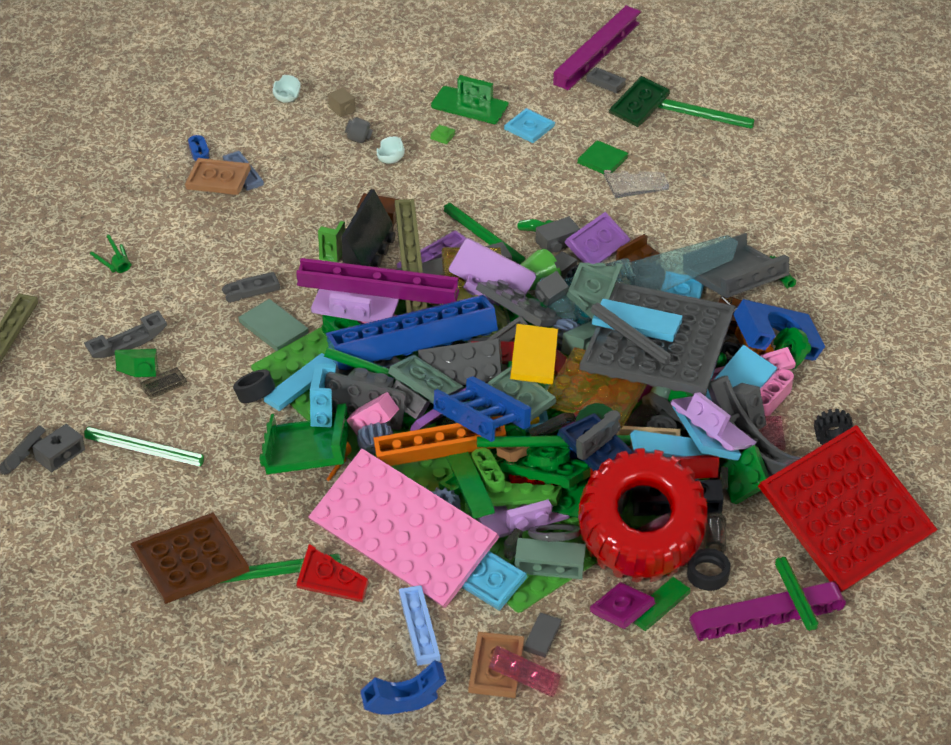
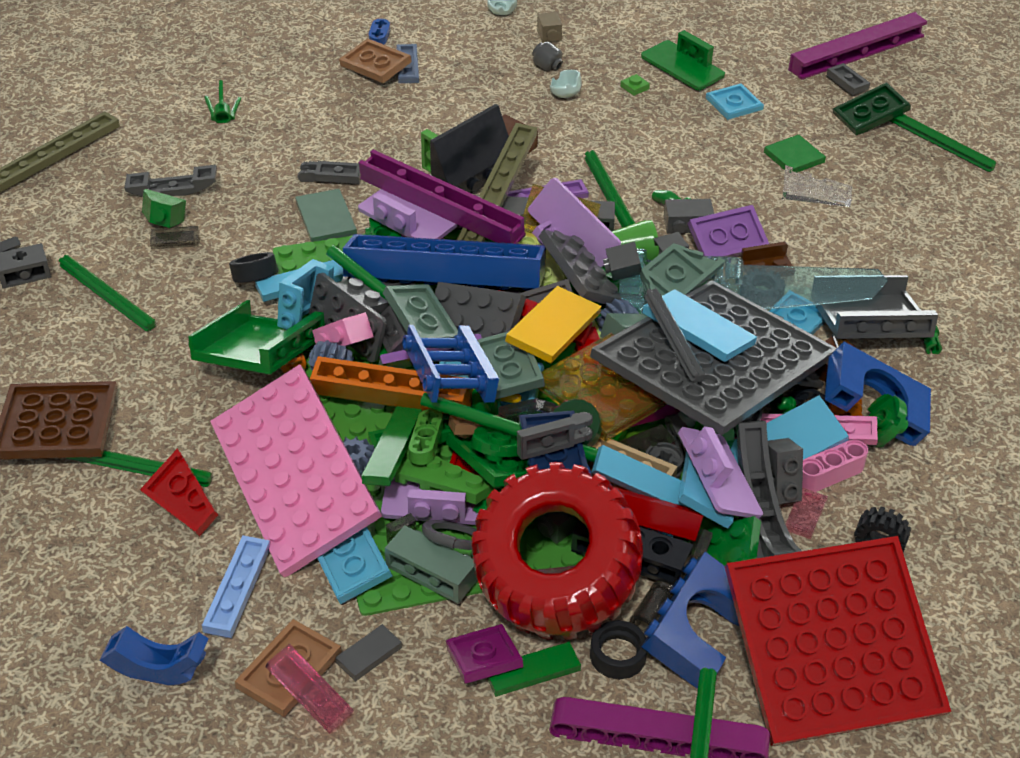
camera: 25 degrees right, 0 degrees up
(740, 543) = (671, 636): none -> blue arch

